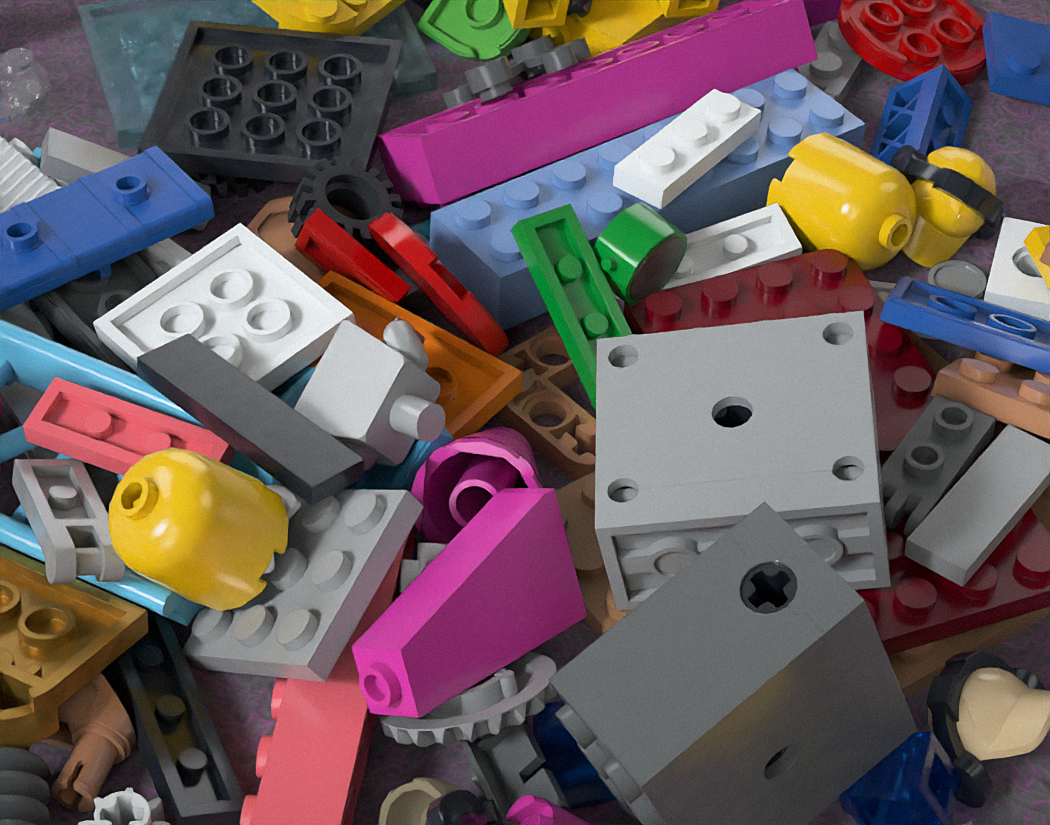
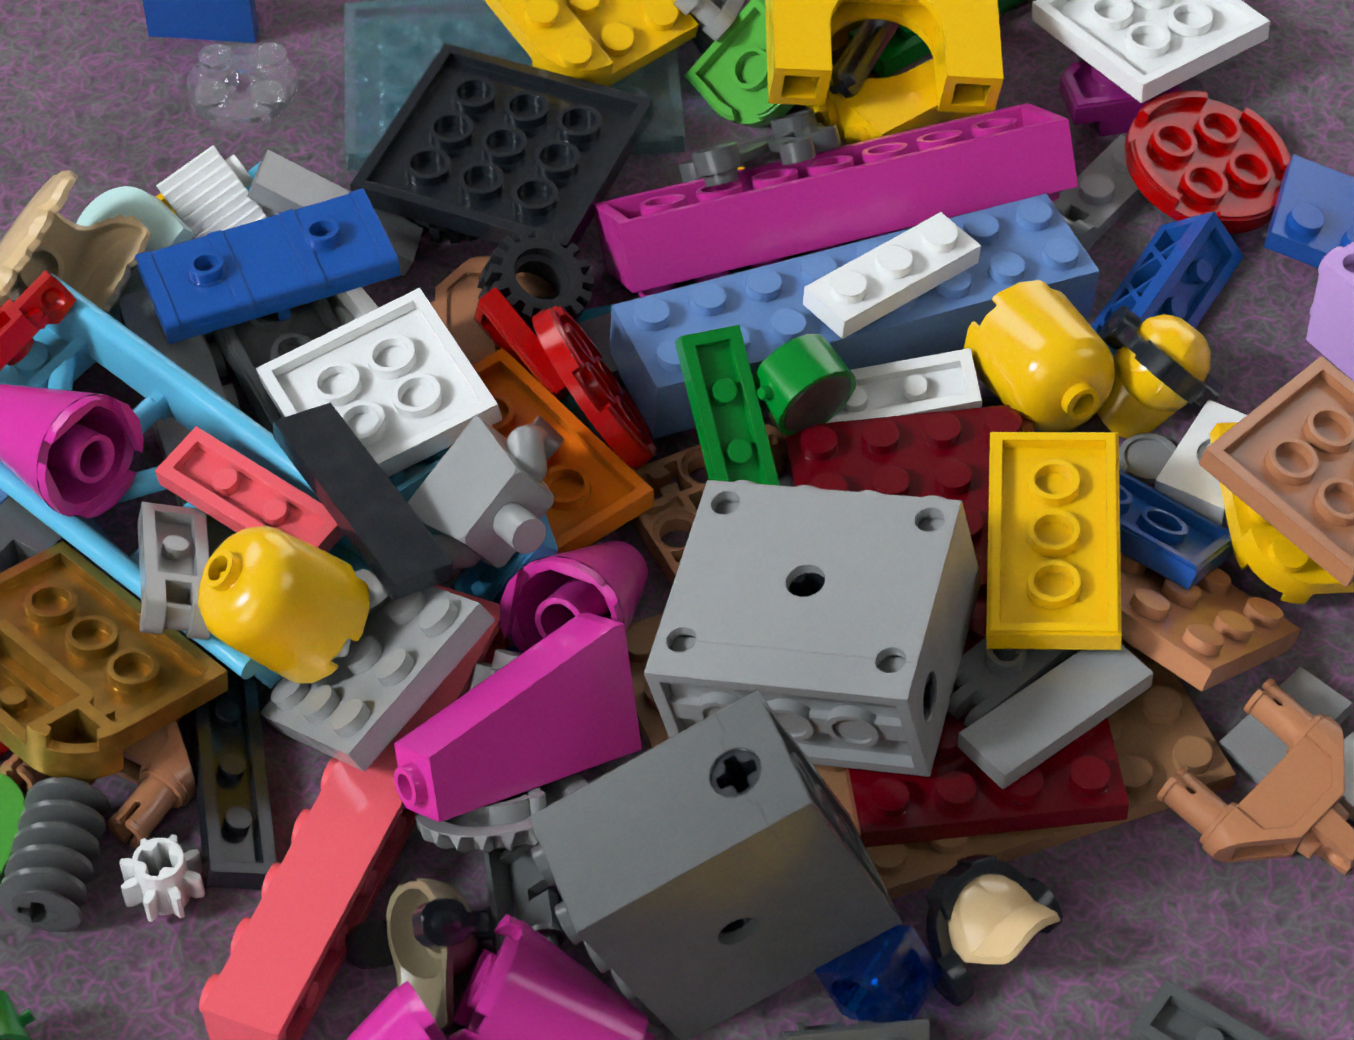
camera: 15 degrees right, 5 degrees up
(936, 351) = (1054, 541): none -> yellow tile

